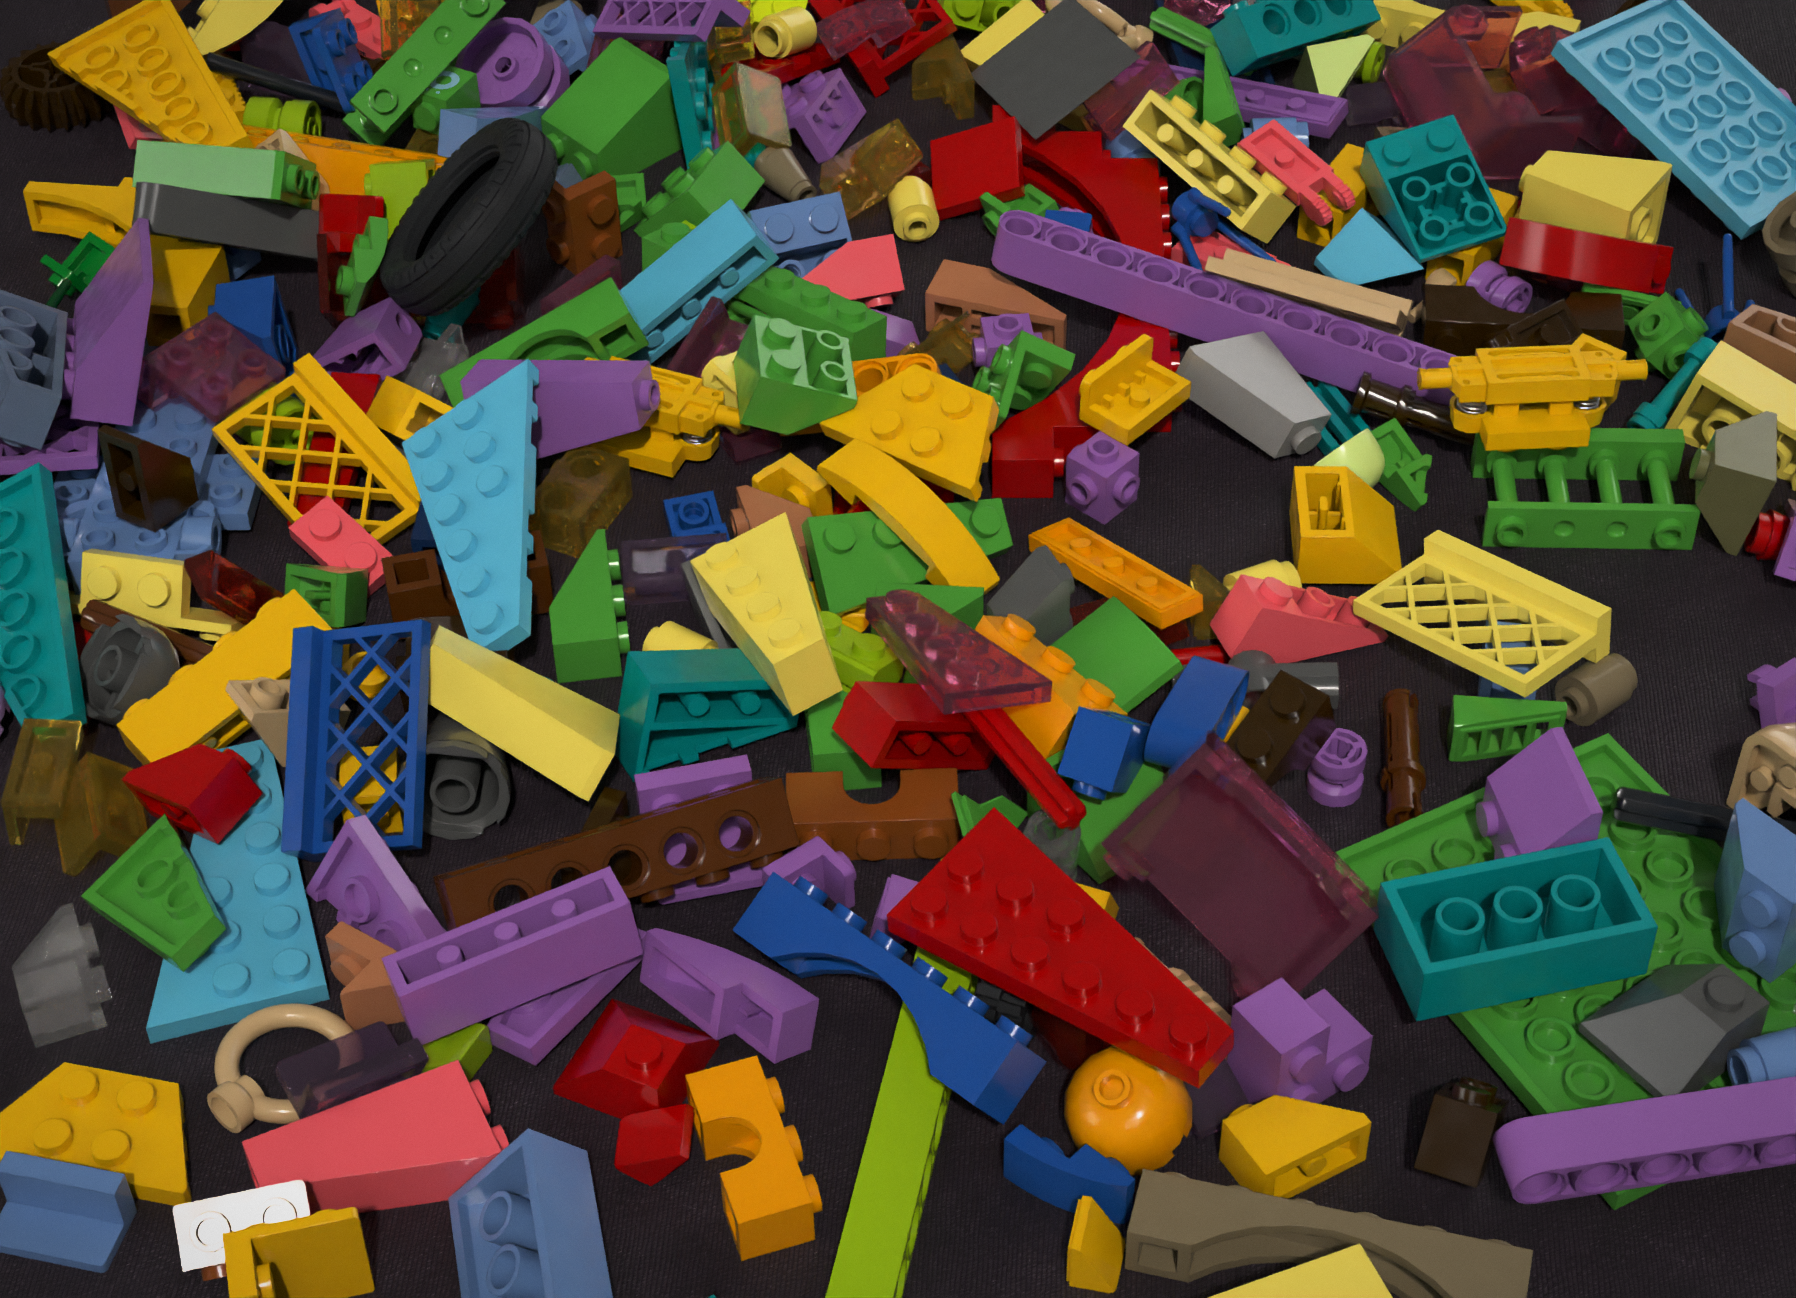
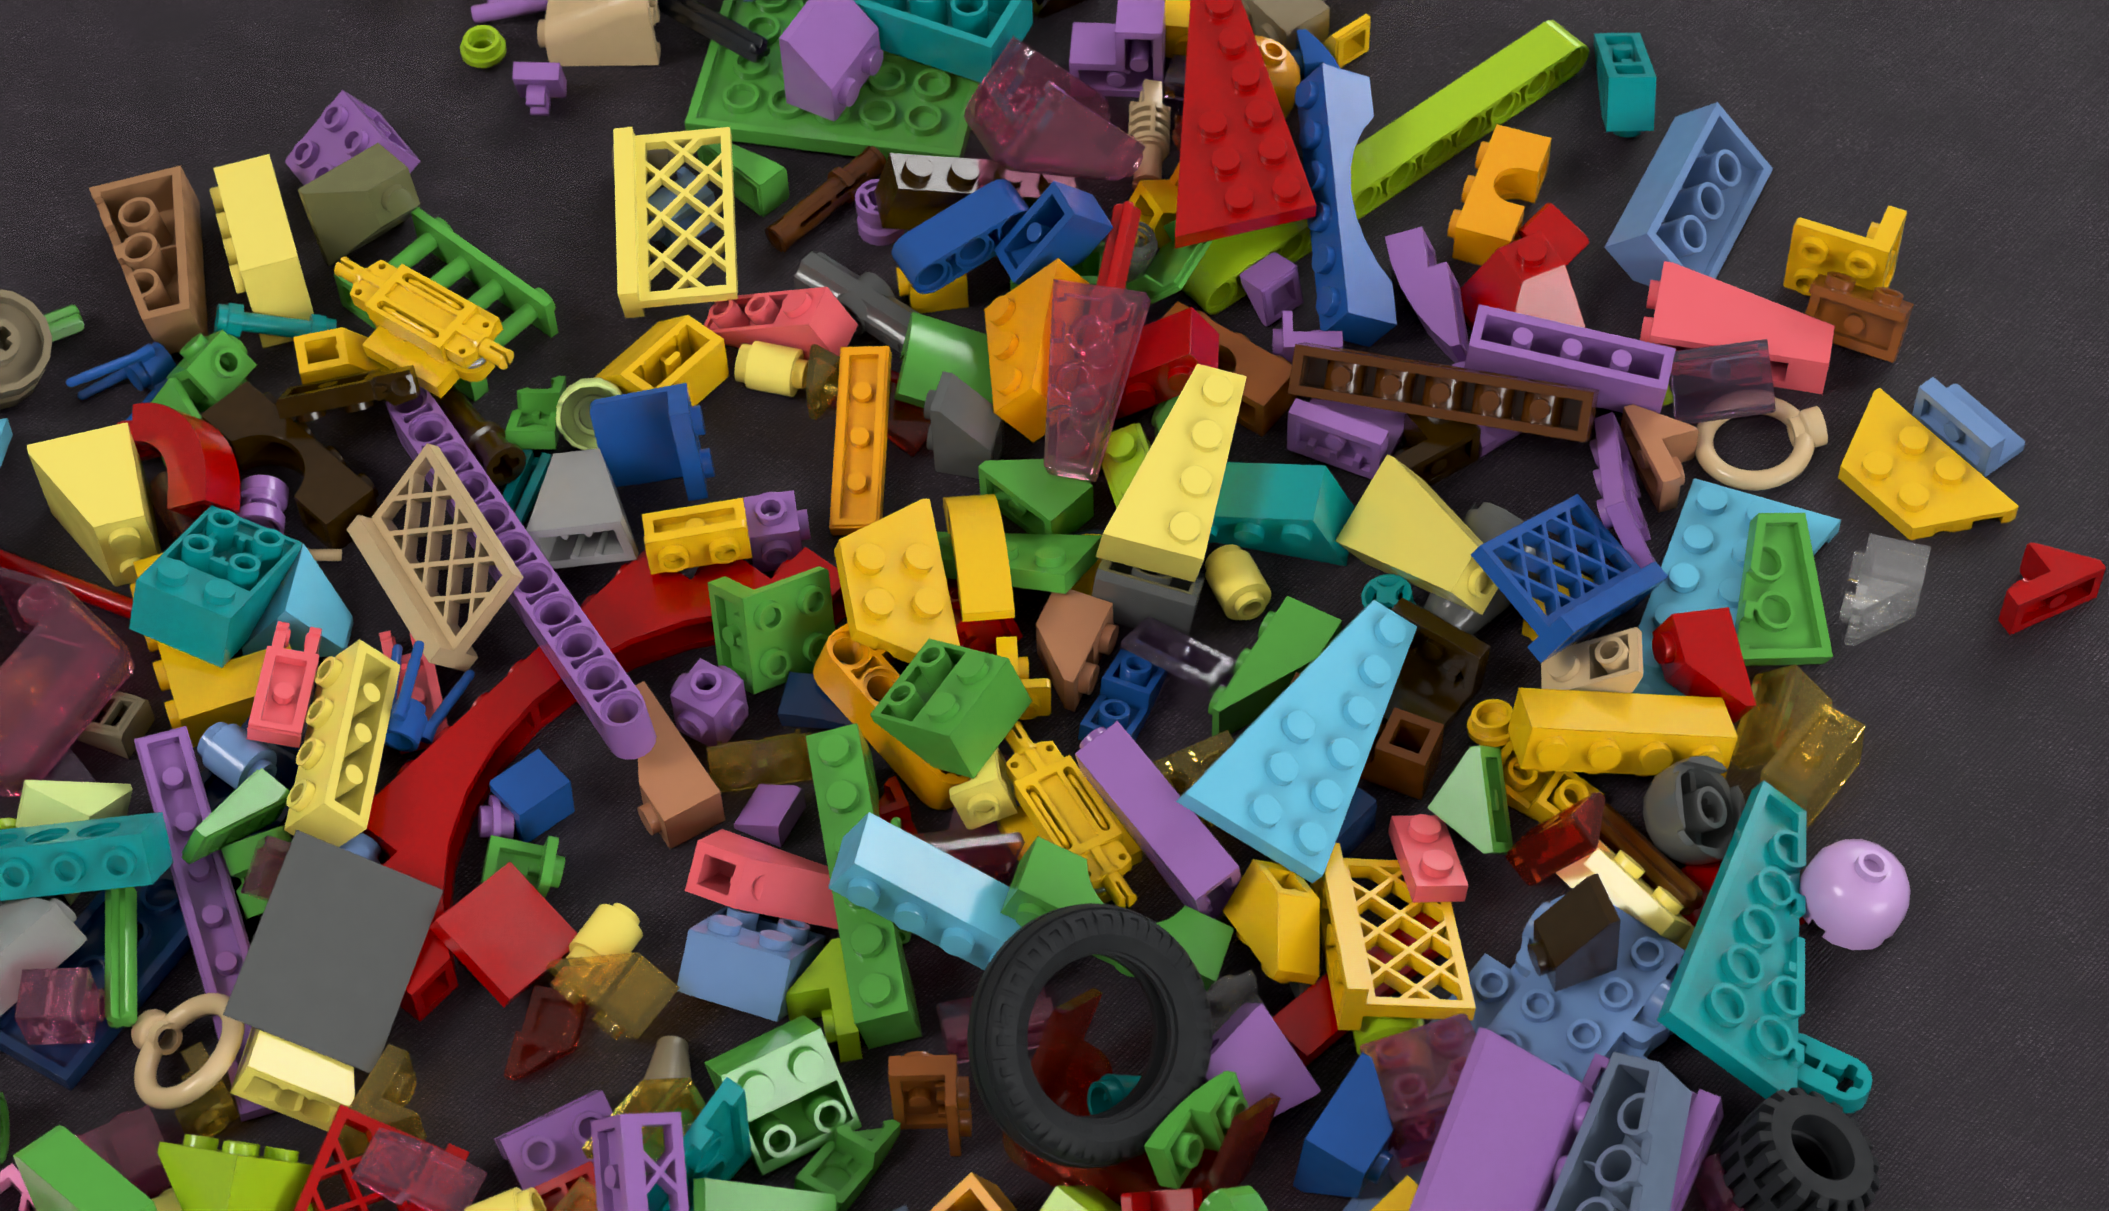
camera: 140 degrees left, 10 degrees up
(1247, 466) = (653, 438): none -> blue bracket

